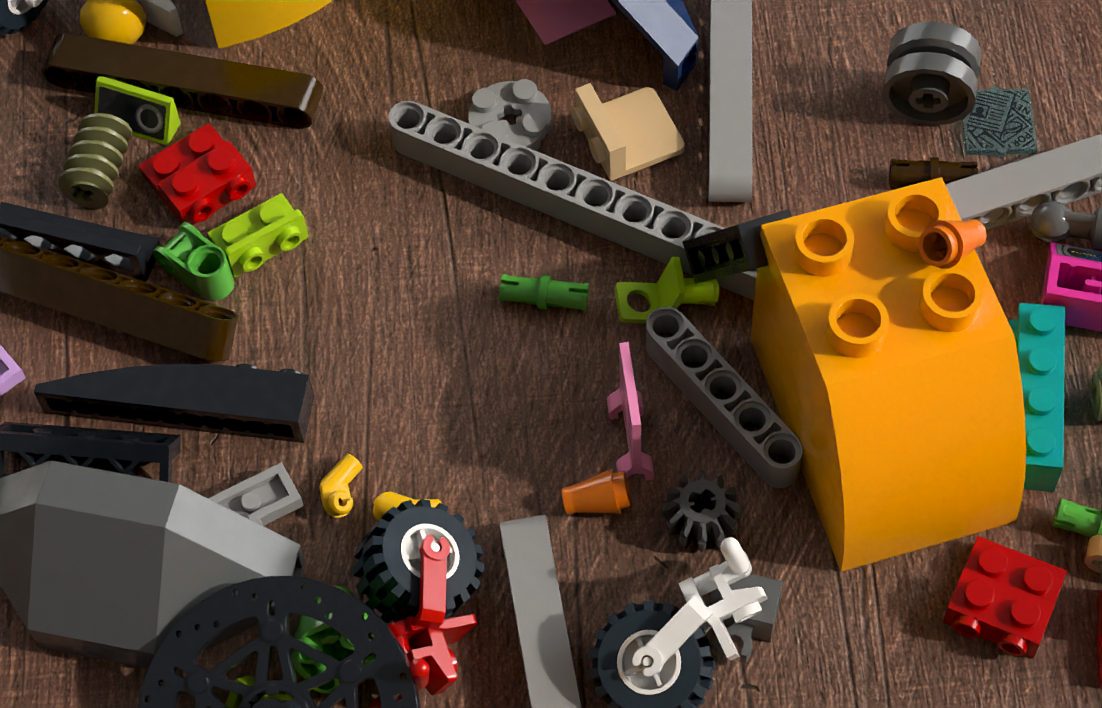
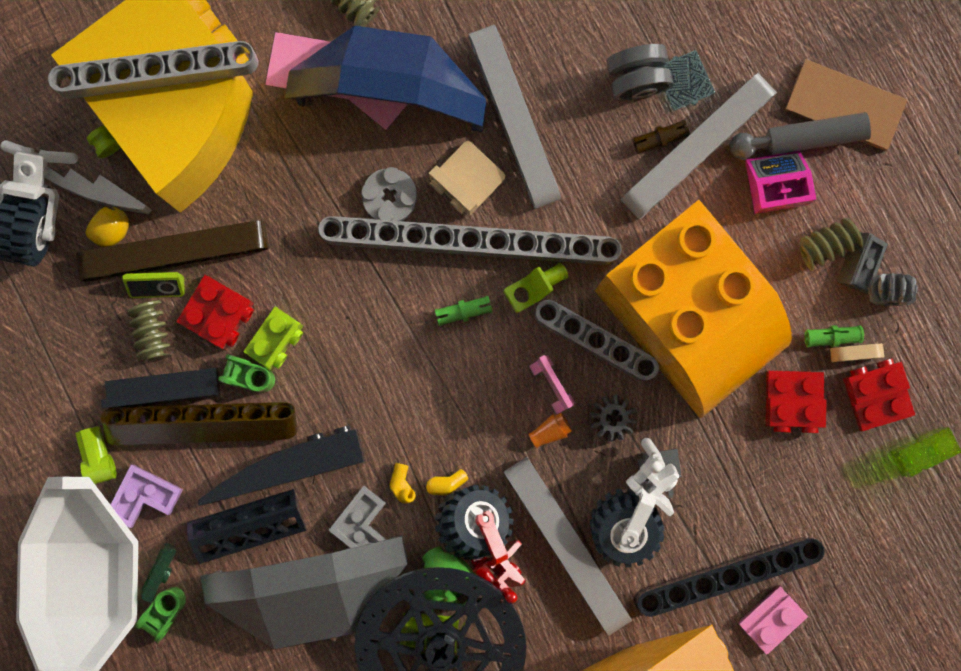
camera: 30 degrees left, 25 degrees up
(729, 249) = (575, 270): black fence -> none
(948, 241) = (724, 254): orange cone -> none
(1041, 358) = (771, 260): teal brick -> none

